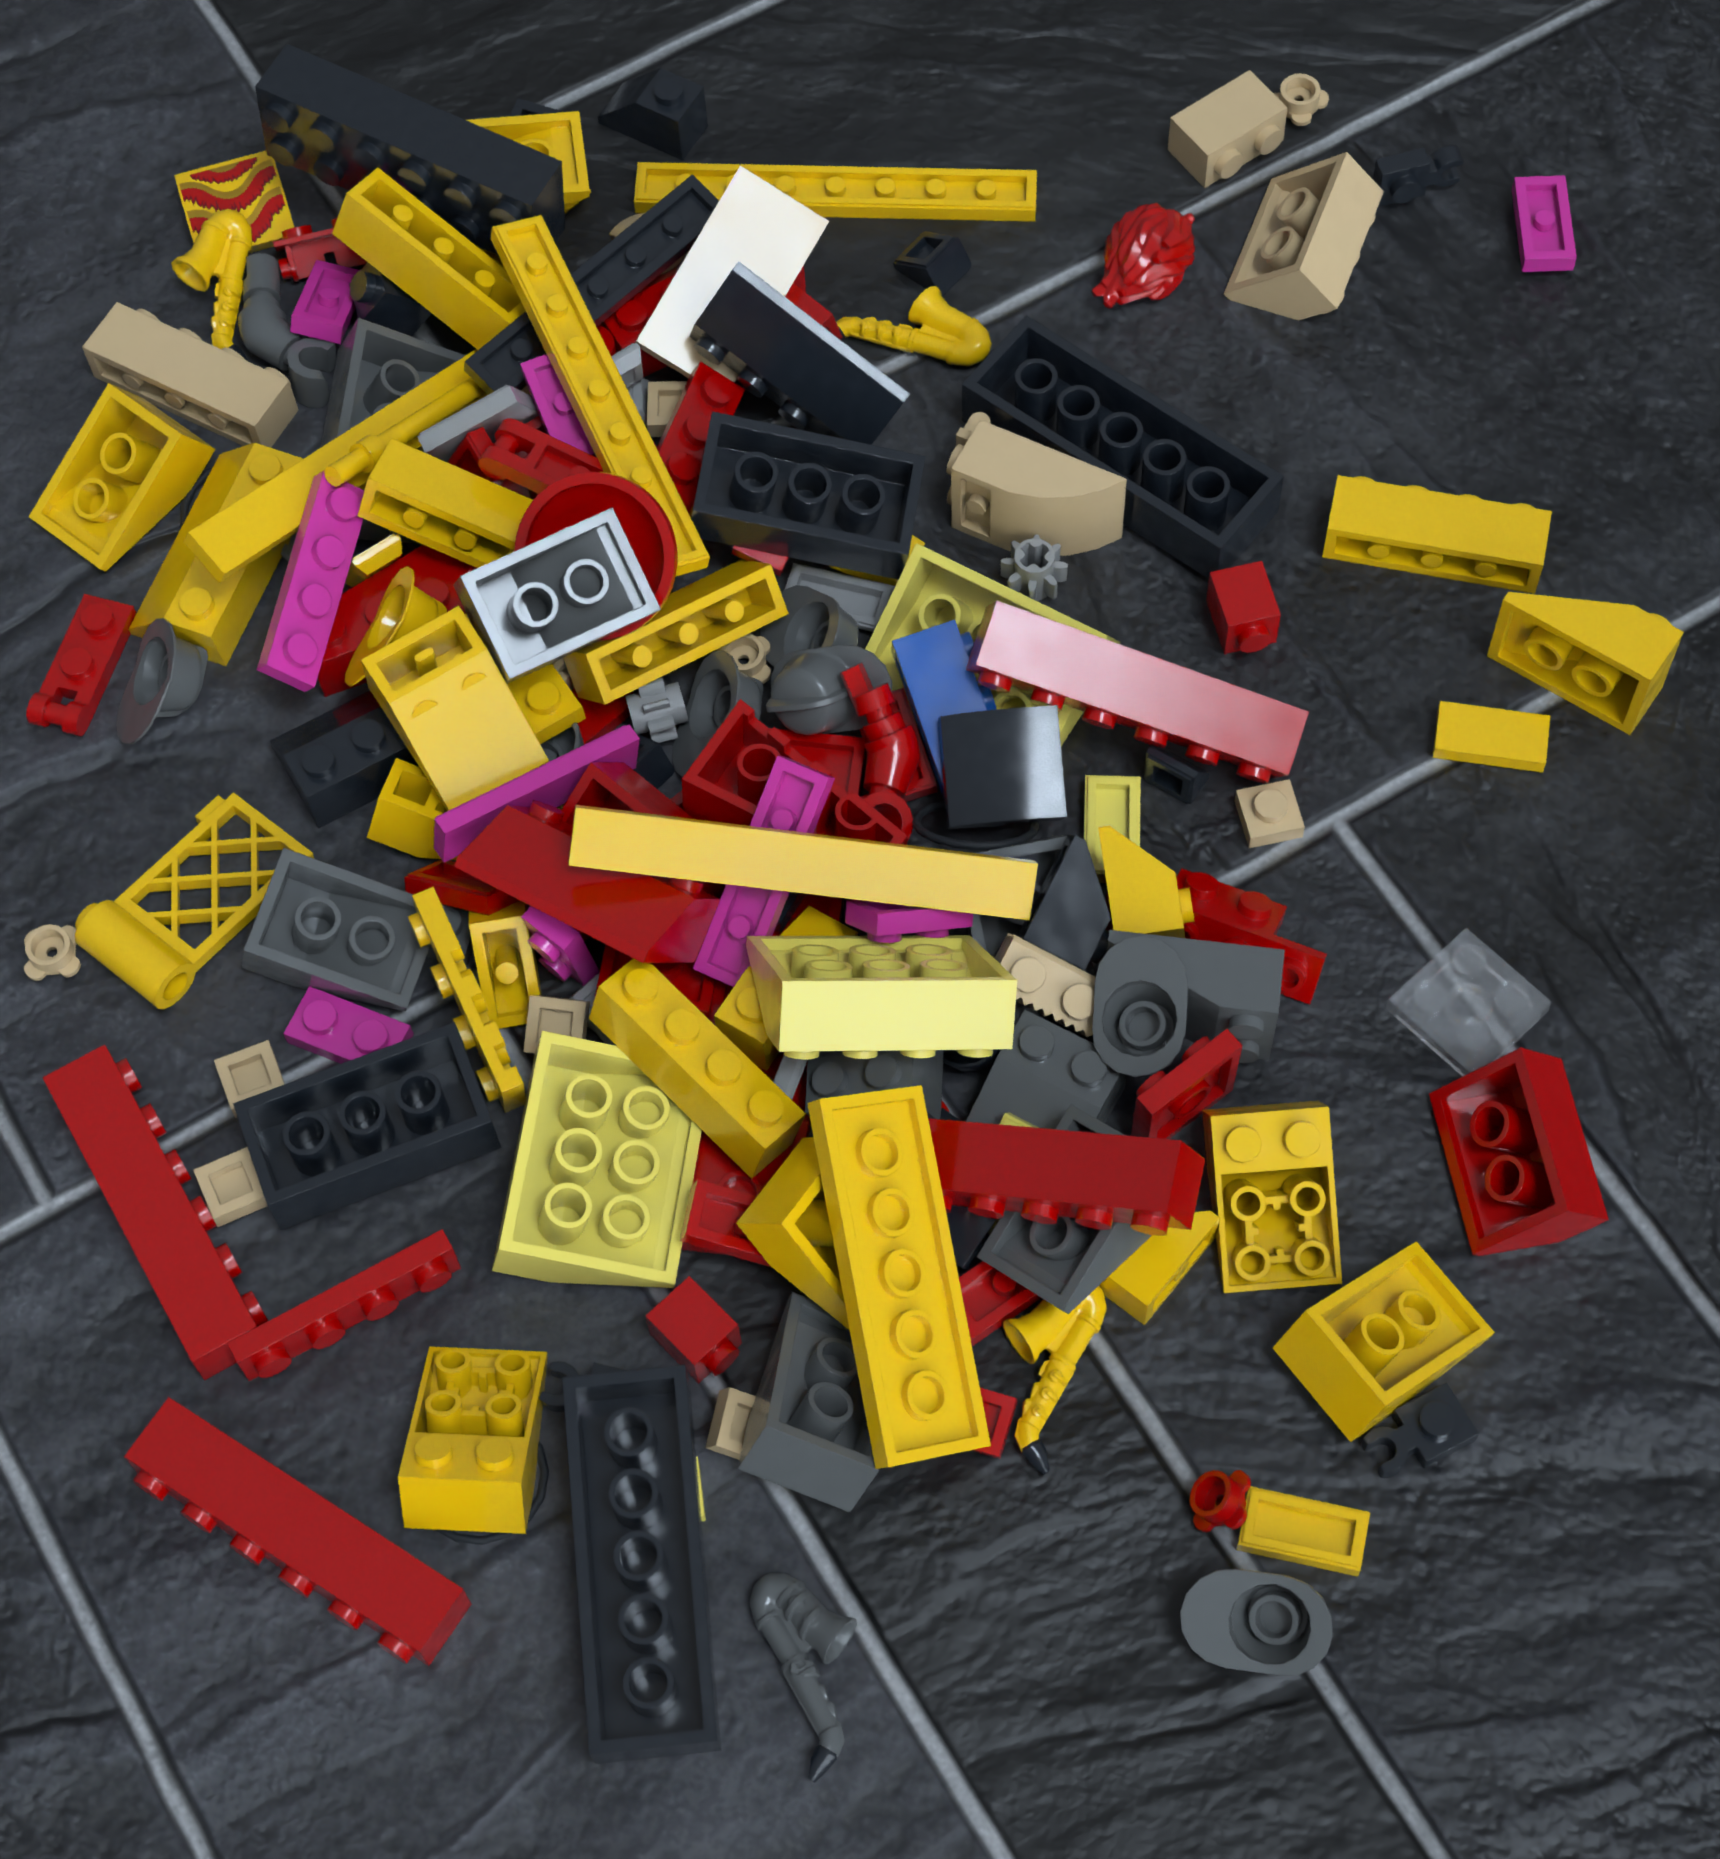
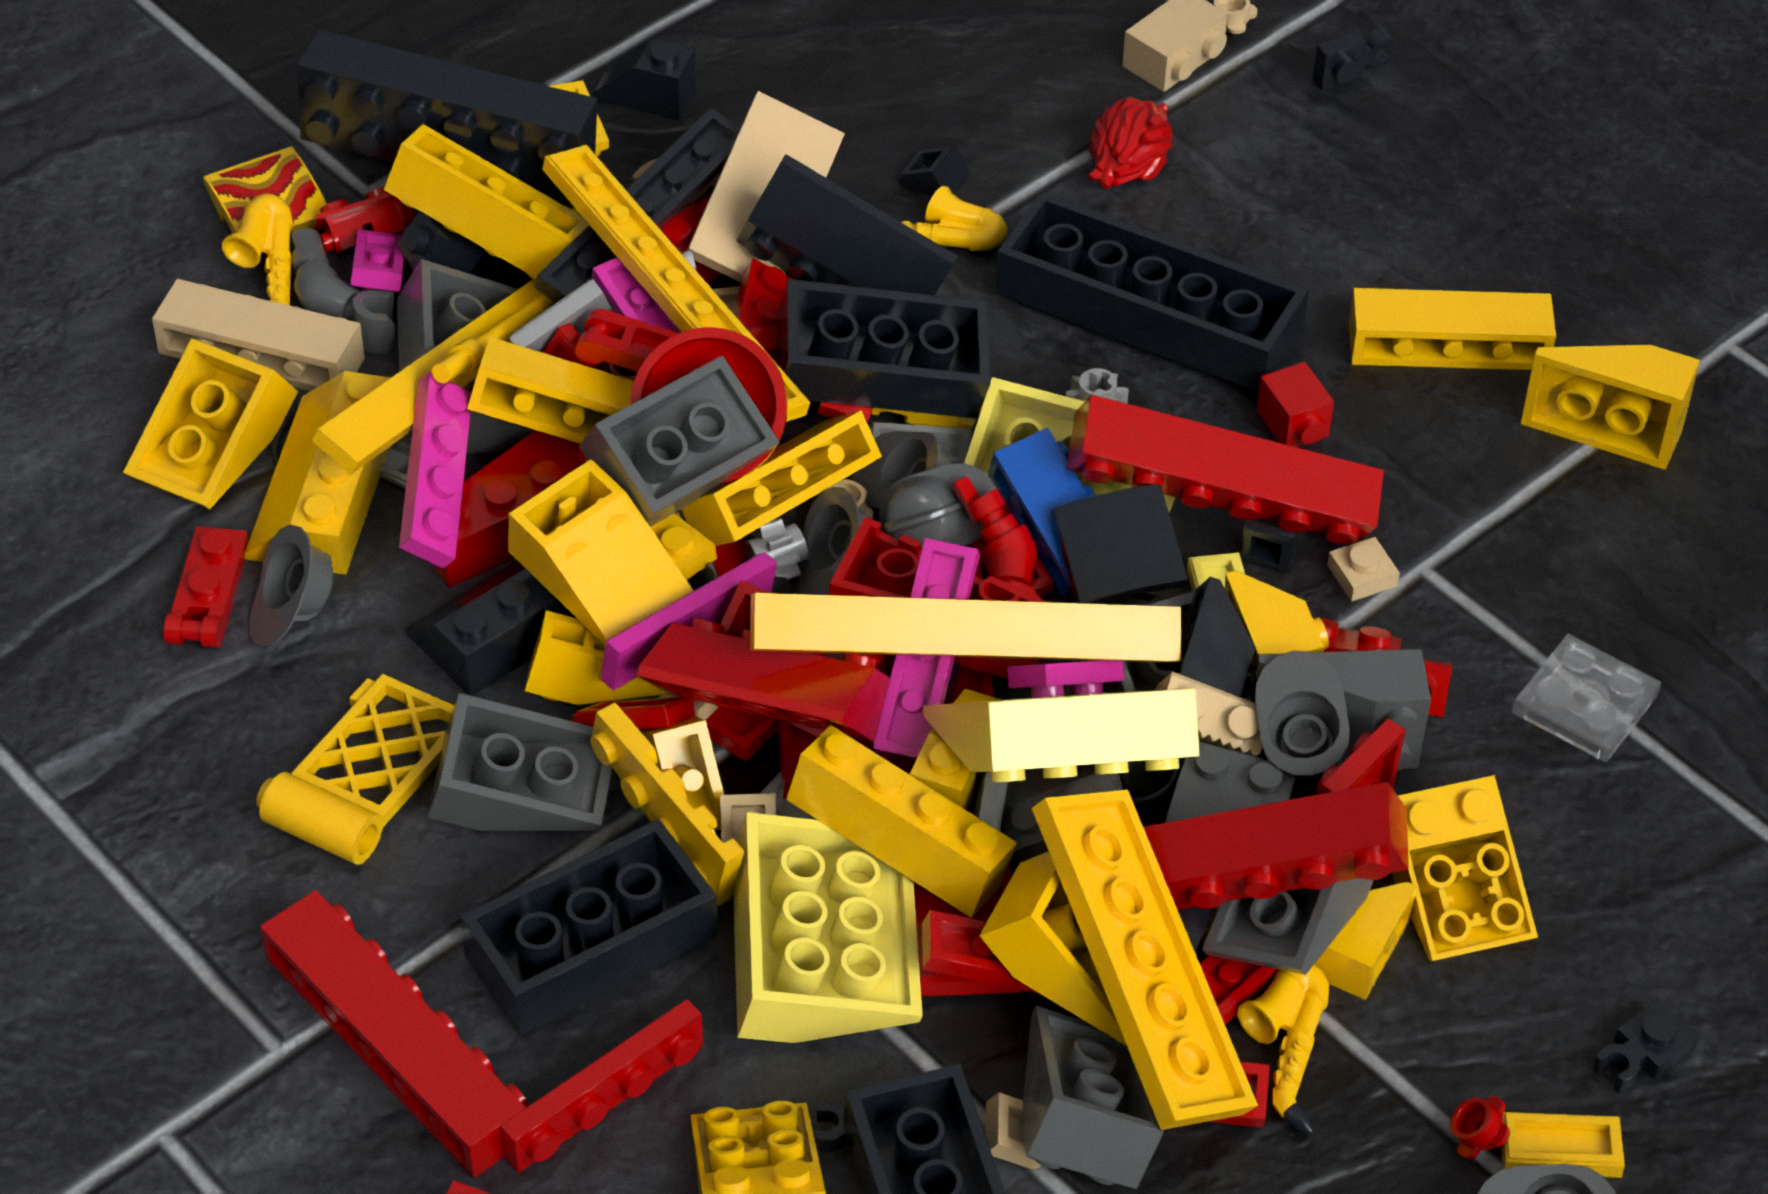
camera: 15 degrees left, 15 degrees down
(43, 940) = (233, 818): tan plate -> none
(231, 1187) = (466, 1000): tan plate -> none
(249, 1072) = (452, 900): tan plate -> none
(341, 1028) = (525, 854): dark pink plate -> none
(374, 559) = (486, 450): yellow tile -> none
(399, 613) = (523, 479): yellow piece -> none
(560, 947) = (740, 747): dark pink plate -> none
(695, 1330) = (948, 1041): red brick -> none
(864, 190) = (881, 122): yellow tile -> none
(1021, 489) = (1077, 326): tan piece -> none
(1306, 239) = (1269, 116): tan slope -> none
(1381, 1340) = (1587, 974): yellow slope -> none
(1491, 736) = (1545, 483): yellow tile -> none
(1518, 1154) = (1667, 805): red slope -> none
(1543, 223) = (1474, 83): dark pink plate -> none

